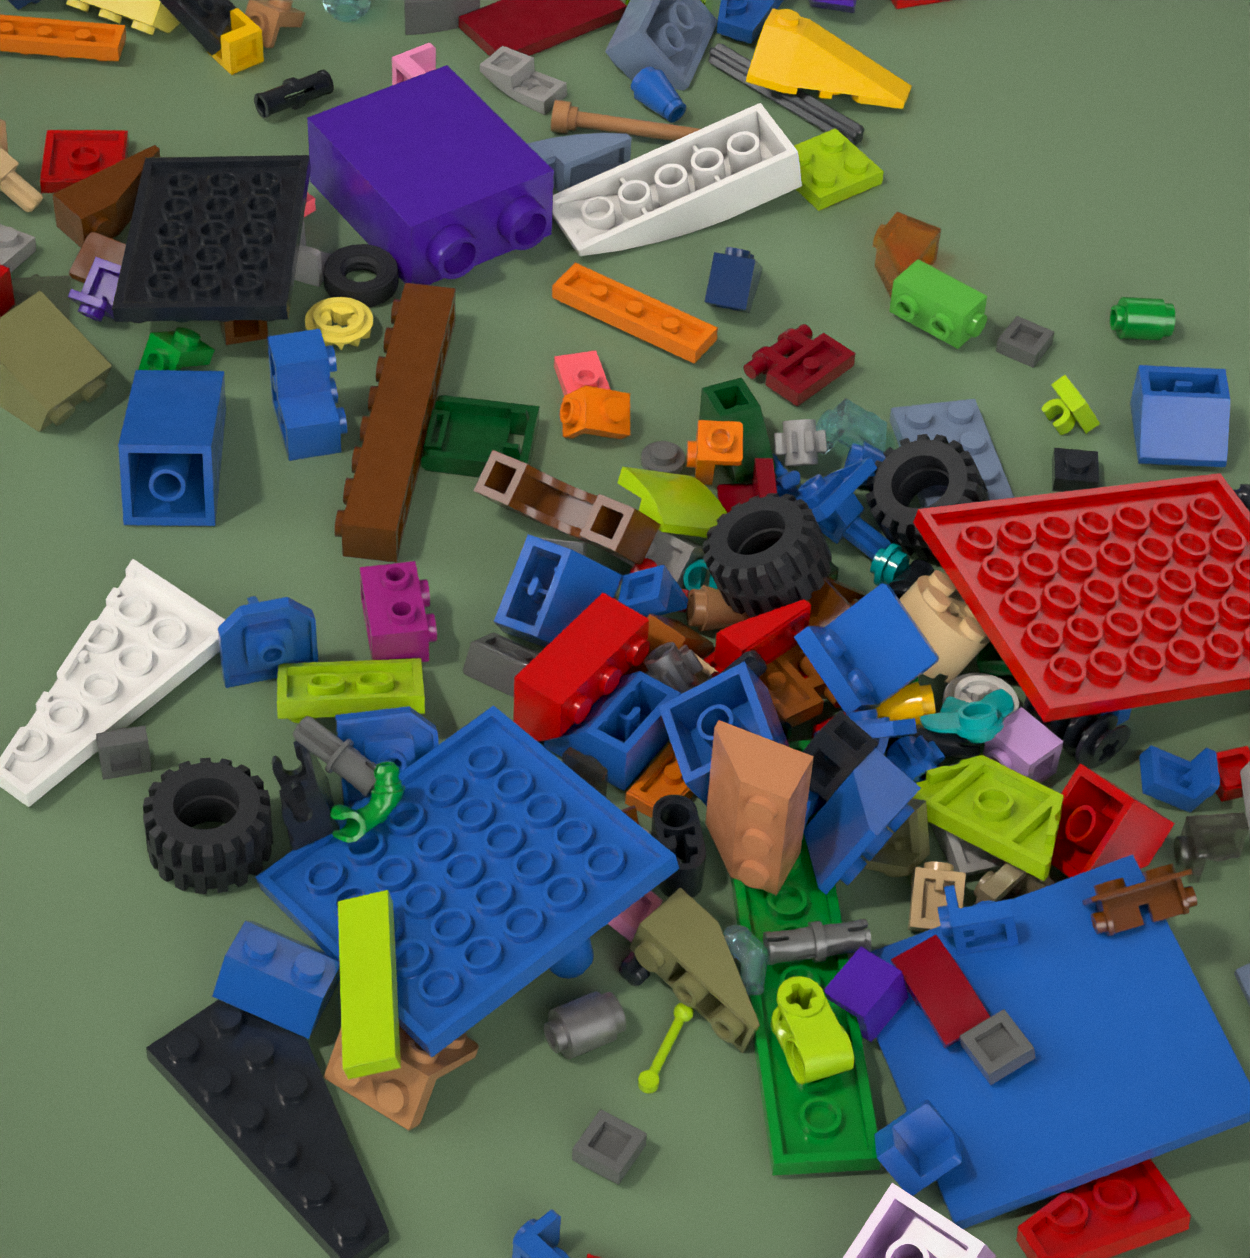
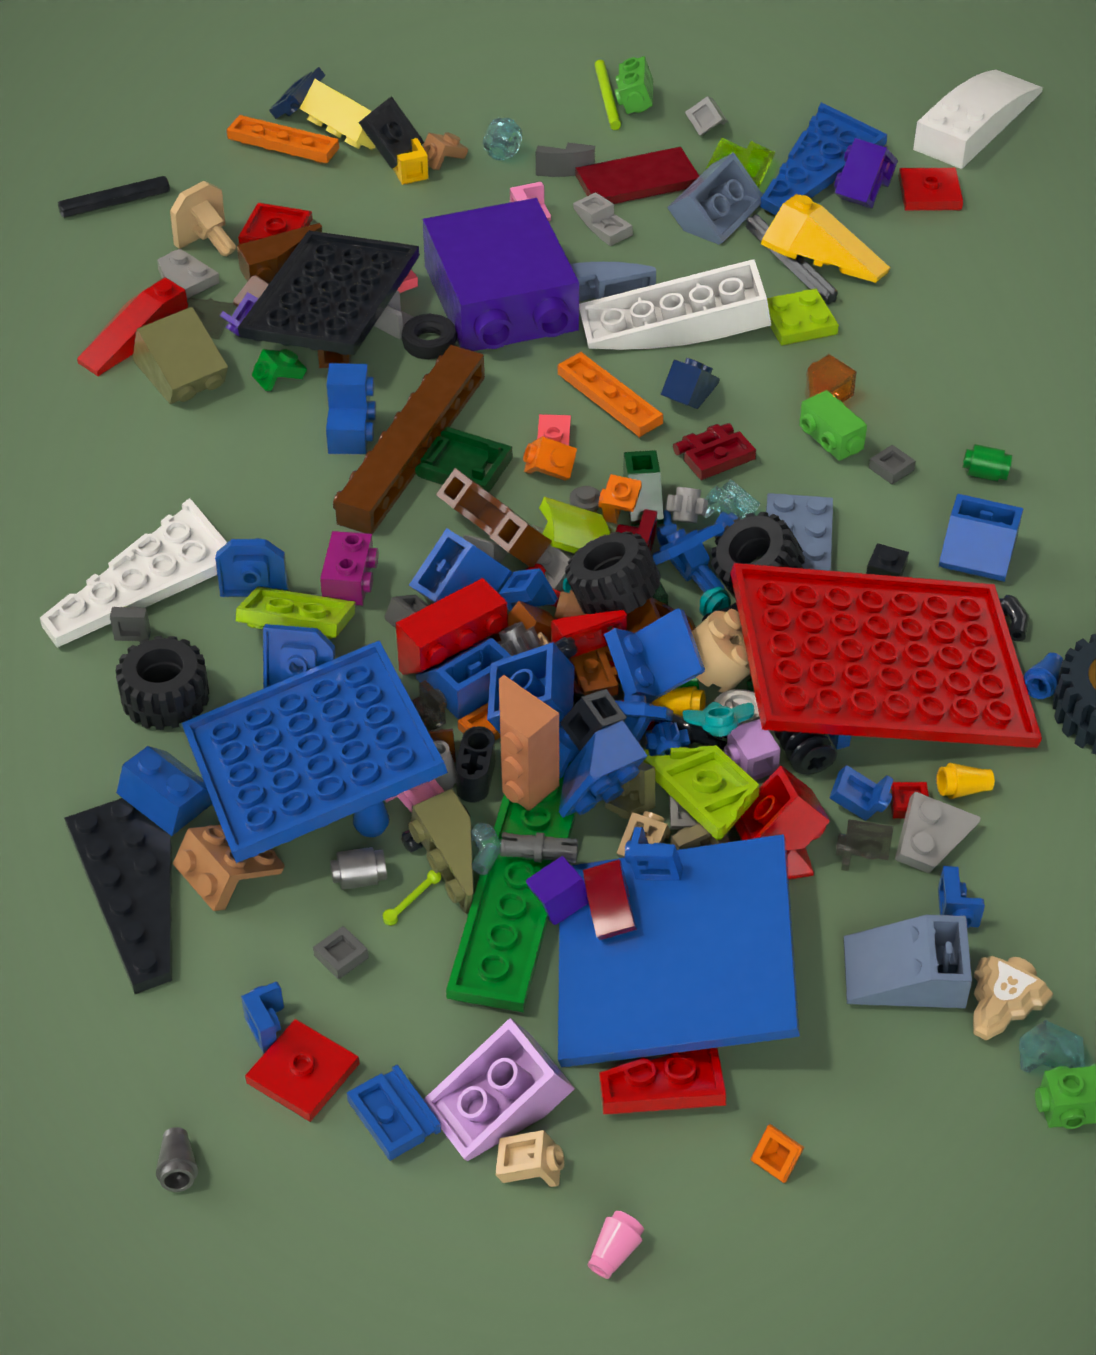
camera: 20 degrees right, 0 degrees up
(172, 448) = (247, 428): blue slope -> none
(275, 100) = (418, 206): black pin -> none
(305, 799) = (236, 676): black hinge -> none
(338, 755) = (260, 653): dark grey axle -> none
(340, 311) = (409, 359): light yellow gear -> none
(368, 985) = (212, 806): lime tile -> none
(384, 798) = (278, 685): green piece -> none
(568, 117) = (622, 250): medium nougat piece -> none
(657, 93) = (694, 242): blue cone -> none
(810, 1032) = (503, 905): lime piece -> none
(918, 1147) = (546, 1001): blue panel -> none
(997, 1047) = (631, 945): dark grey plate -> none
(1072, 407) = (901, 517): lime tile -> none
(1120, 904) = (756, 863): reddish brown hinge -> none

